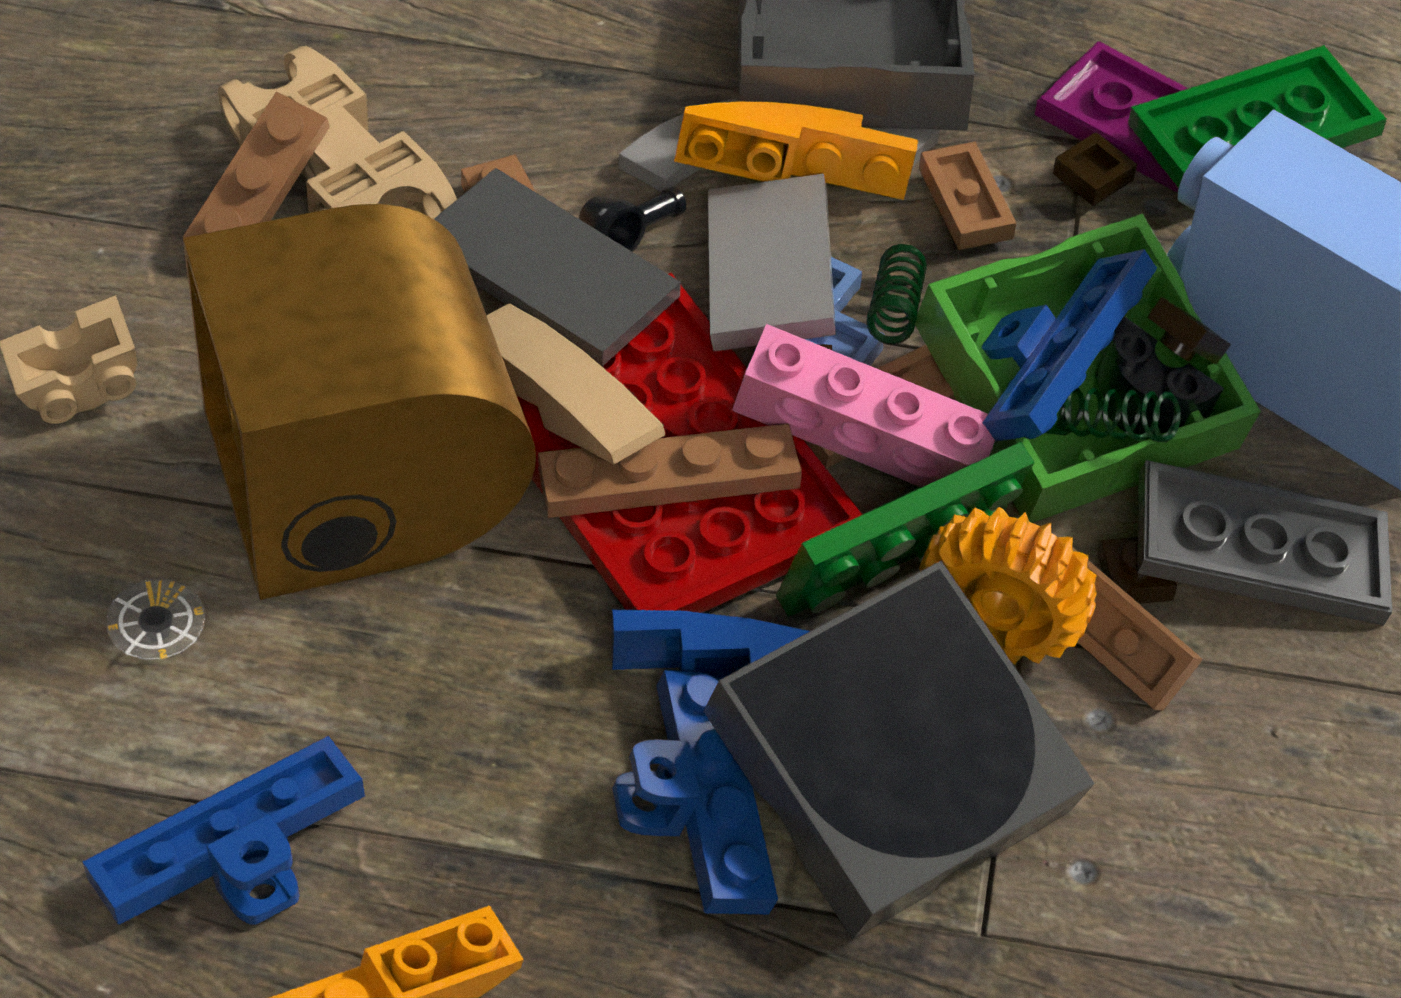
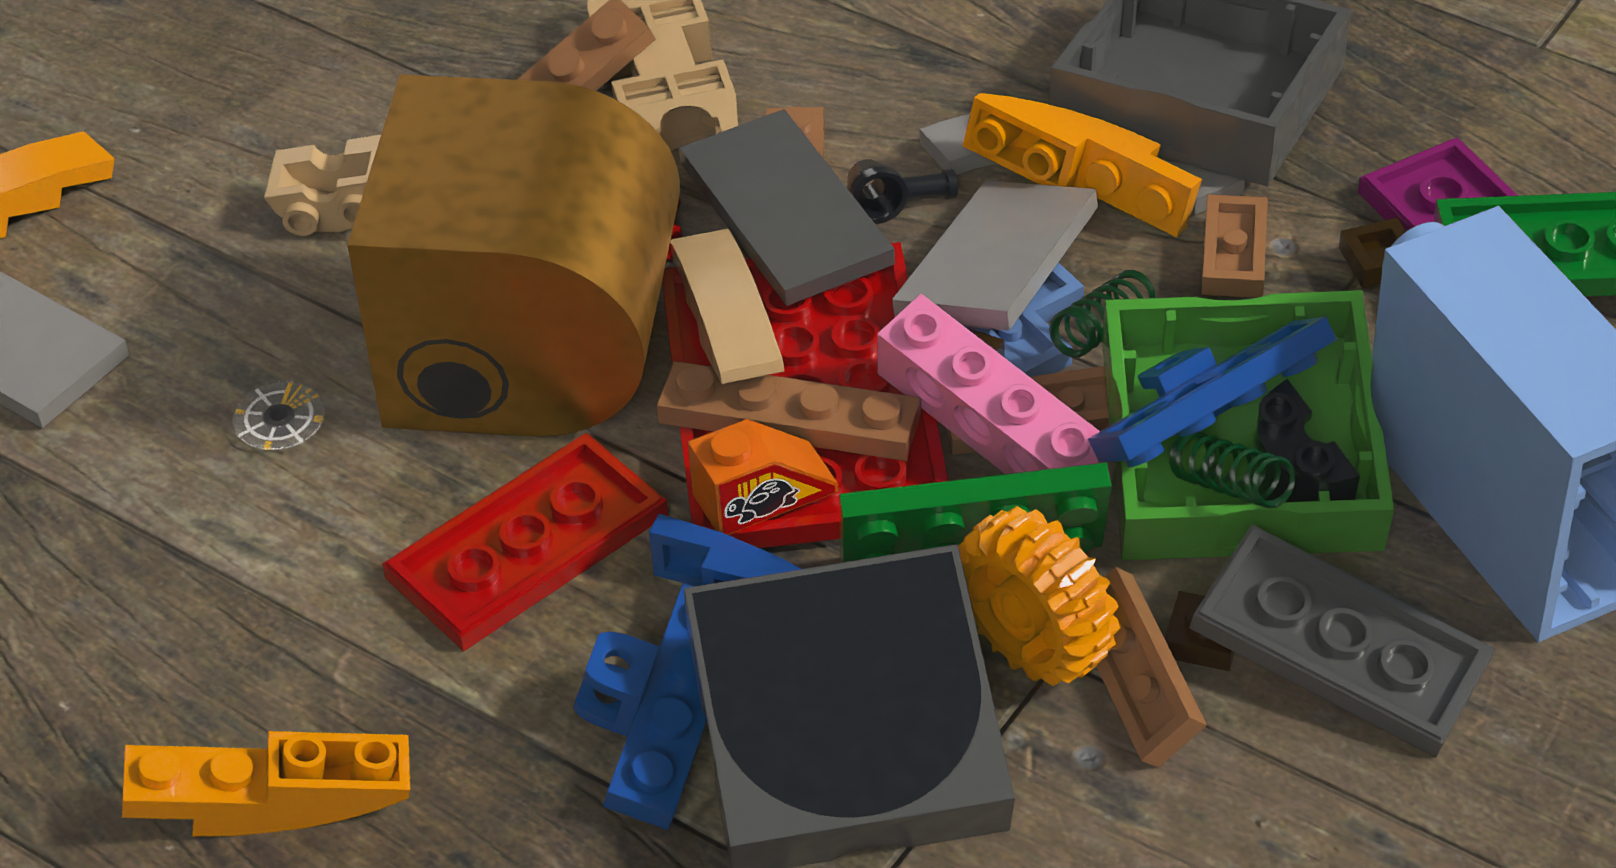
camera: 30 degrees right, 5 degrees down
(229, 836) = (230, 613): blue plate -> none
(473, 674) = (524, 541): none -> red tile
(680, 547) = (754, 474): none -> orange slope
(1186, 334) = (1343, 411): dark brown plate -> none

